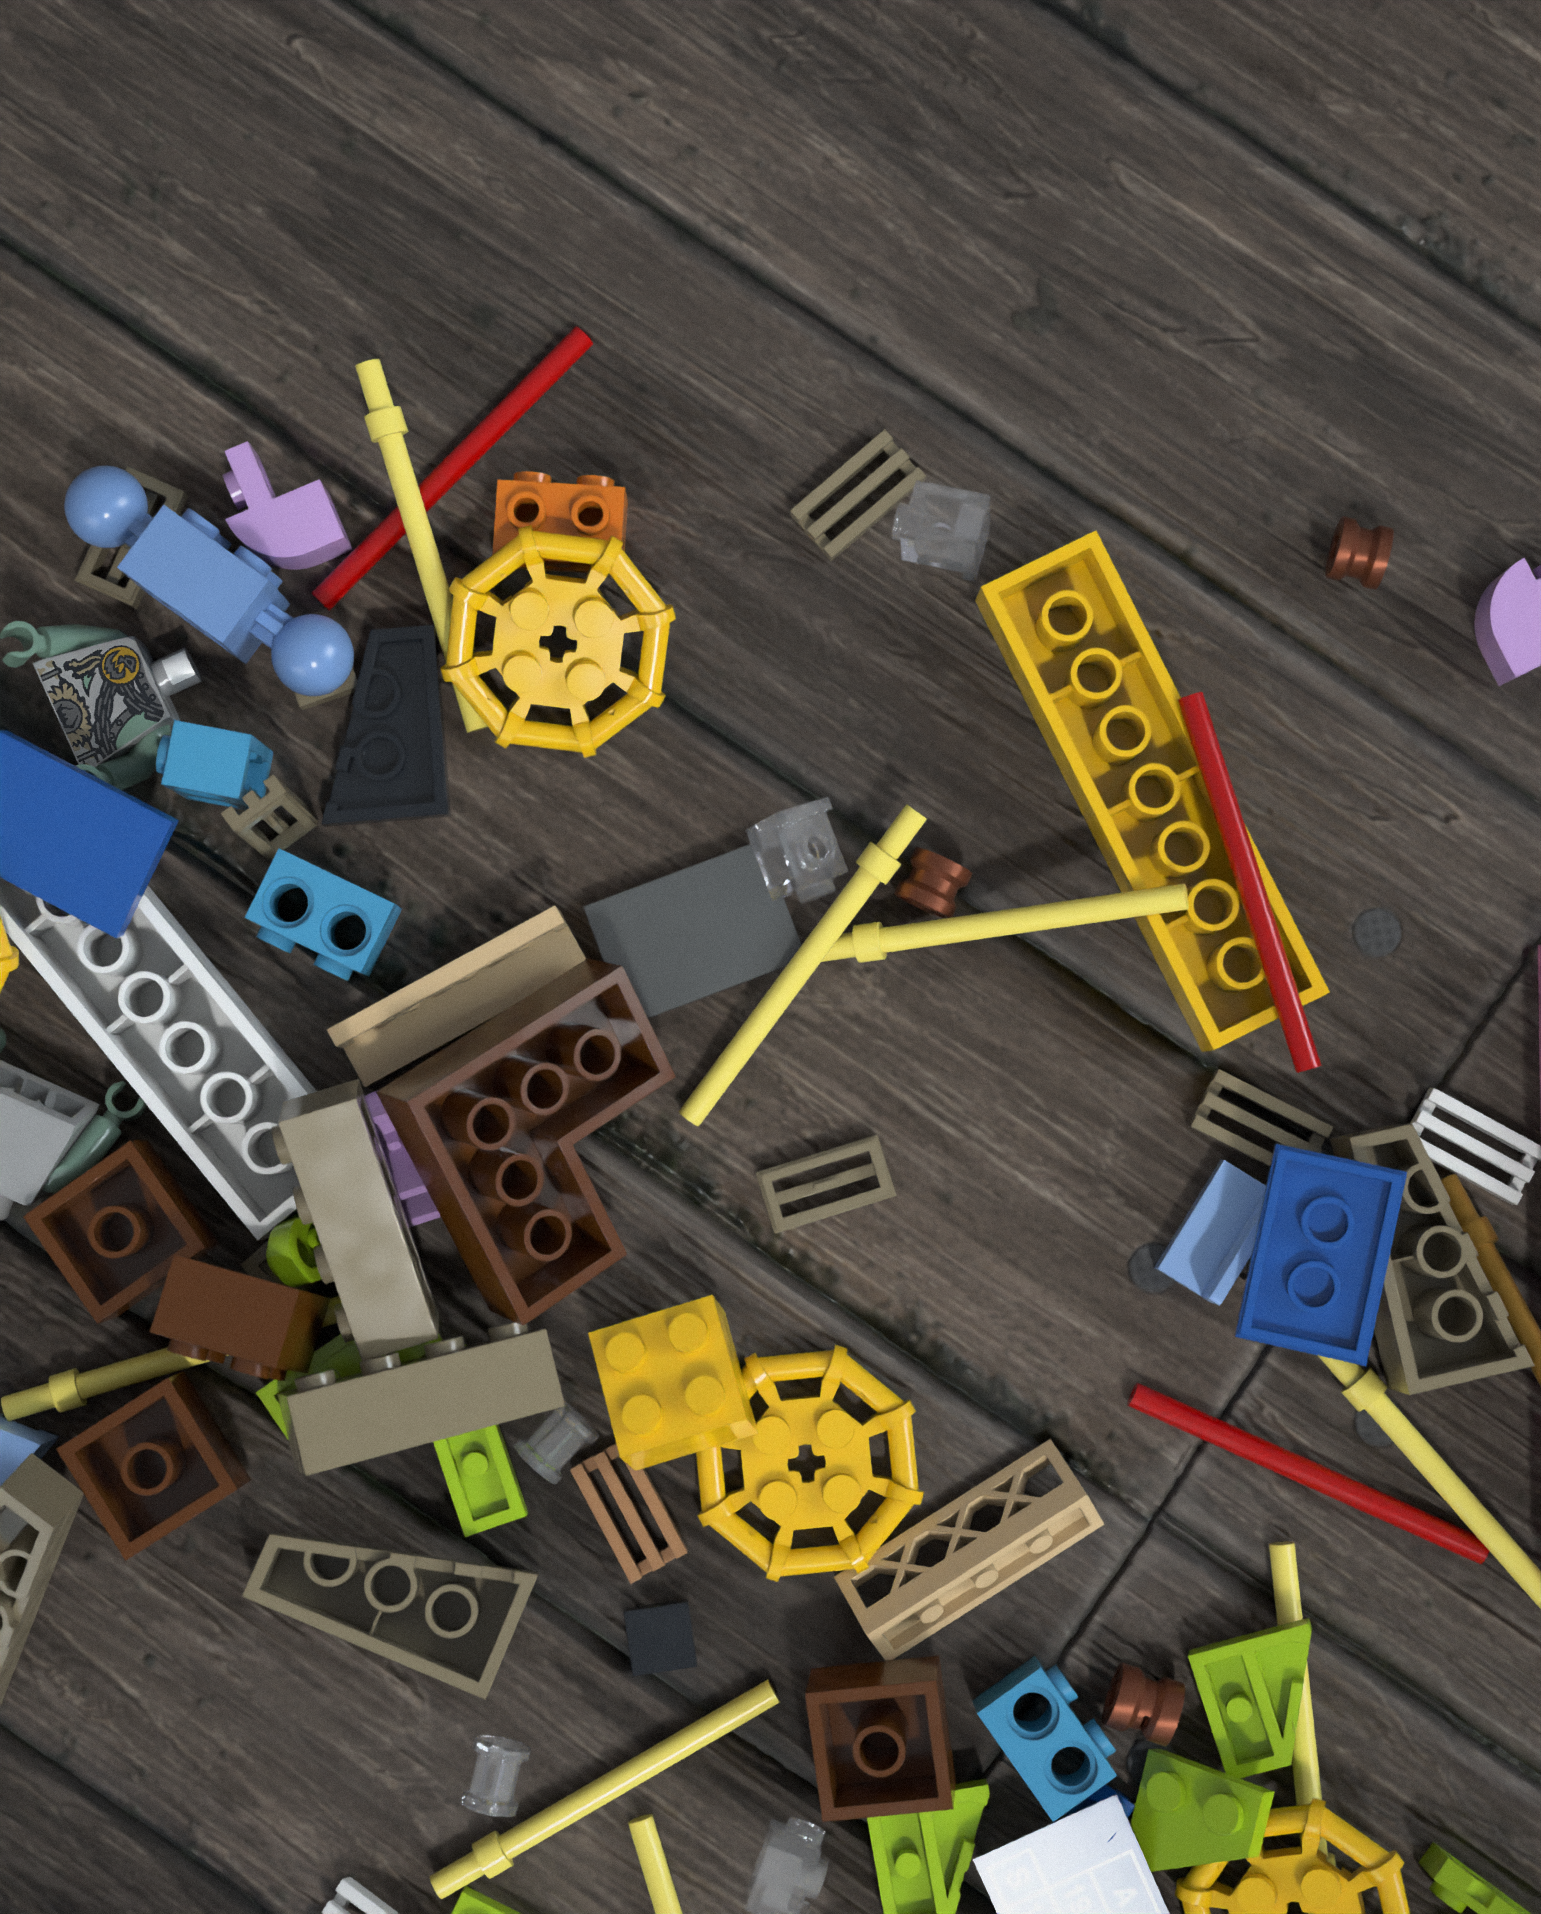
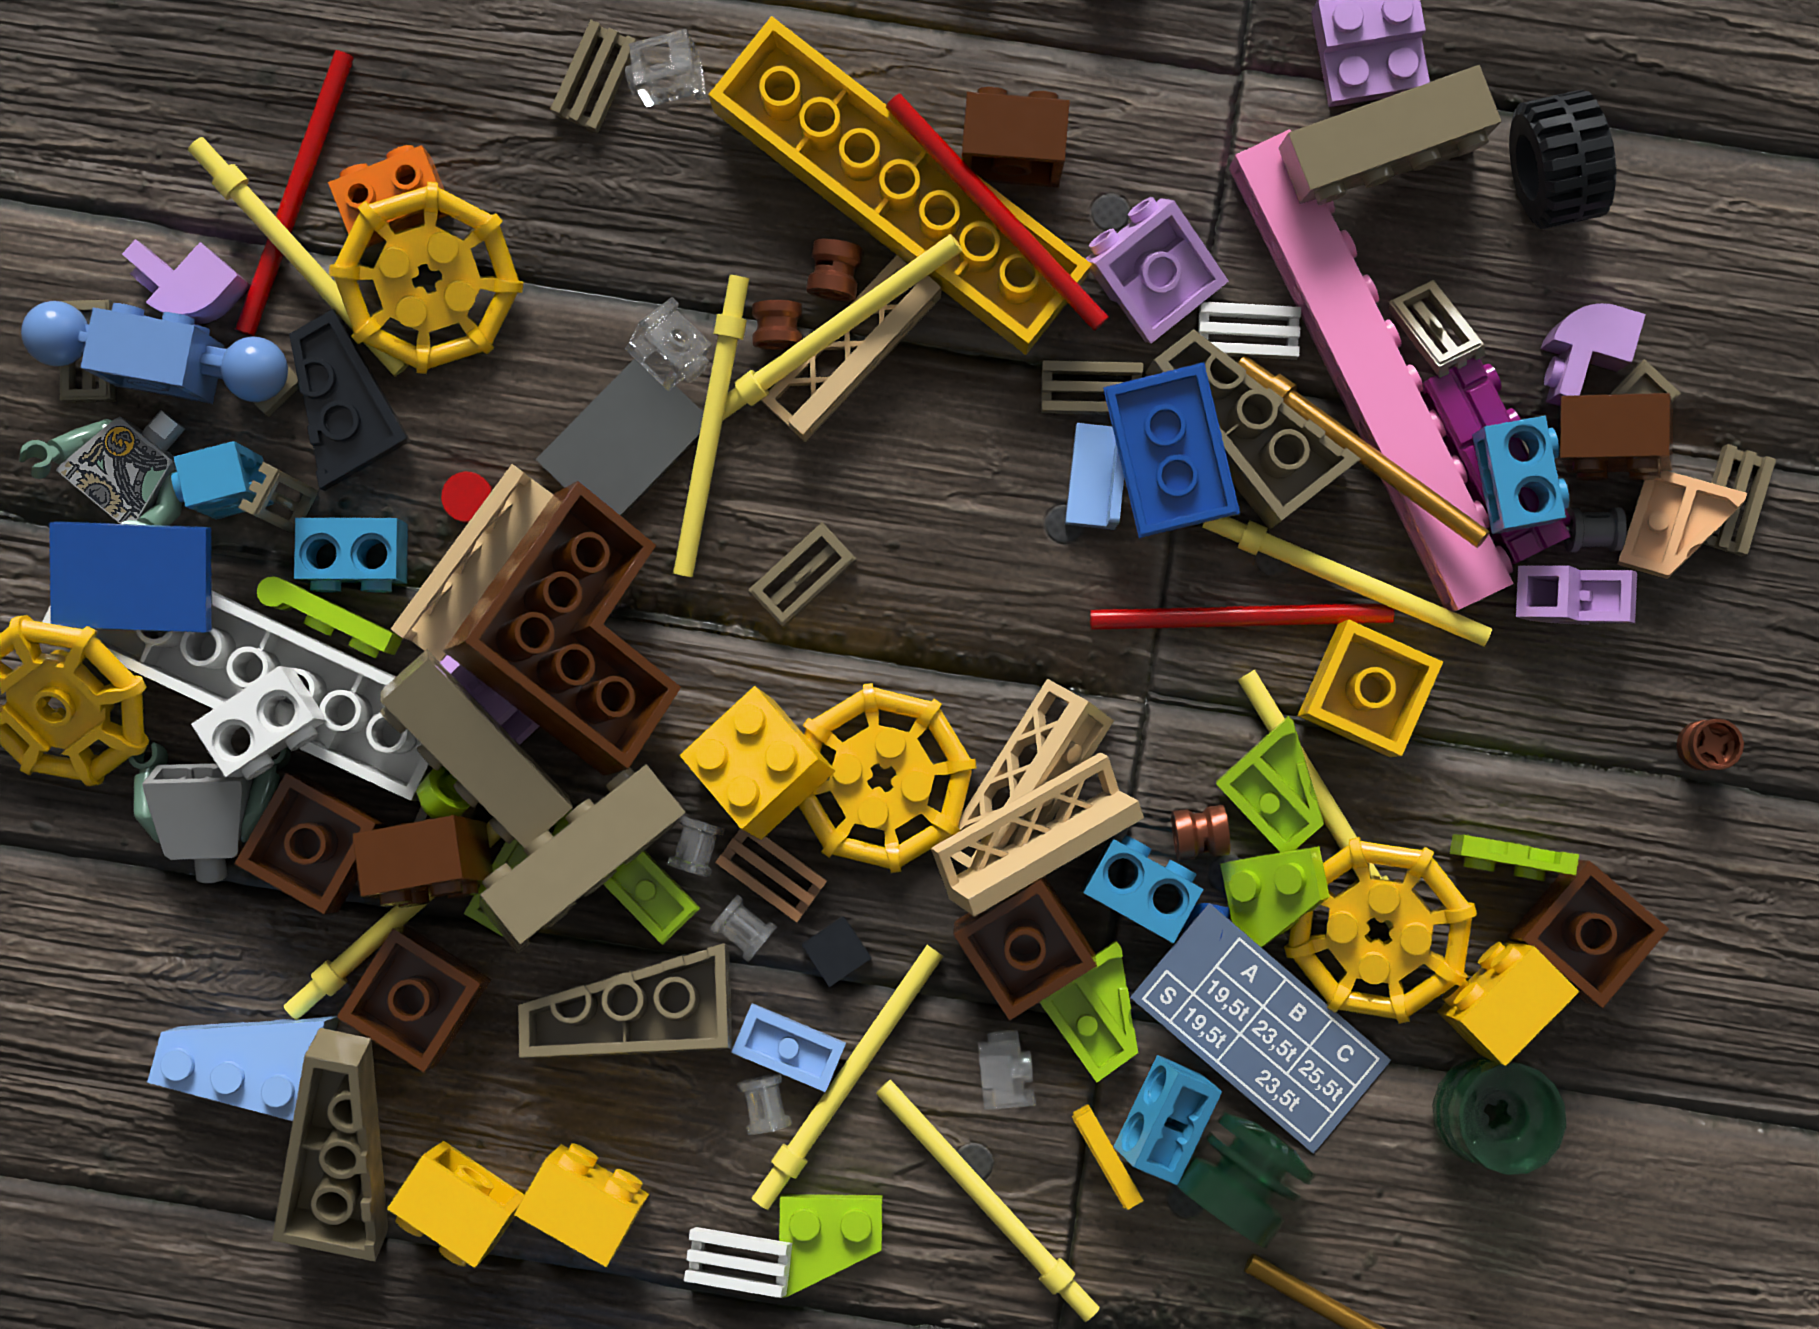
camera: 20 degrees left, 0 degrees up
(91, 1729) = (455, 1204): none -> yellow brick
(128, 1059) = (255, 712): none -> white brick
(236, 1796) = (583, 1202): none -> yellow brick
(262, 974) = (327, 616): none -> lime plate
(484, 911) = (464, 495): none -> red tile
(553, 1724) = (788, 1047): none -> light blue plate
(566, 1561) = (742, 928): none -> clear bush
(949, 1636) = (1040, 851): none -> tan fence
(1011, 971) = (860, 362): none -> tan fence
(1029, 851) = (834, 269): none -> copper wheel
(1311, 800) = (1015, 136): none -> reddish brown brick
(1399, 1024) = (1155, 267): none -> lavender plate
(1418, 1634) = (1370, 688): none -> yellow brick

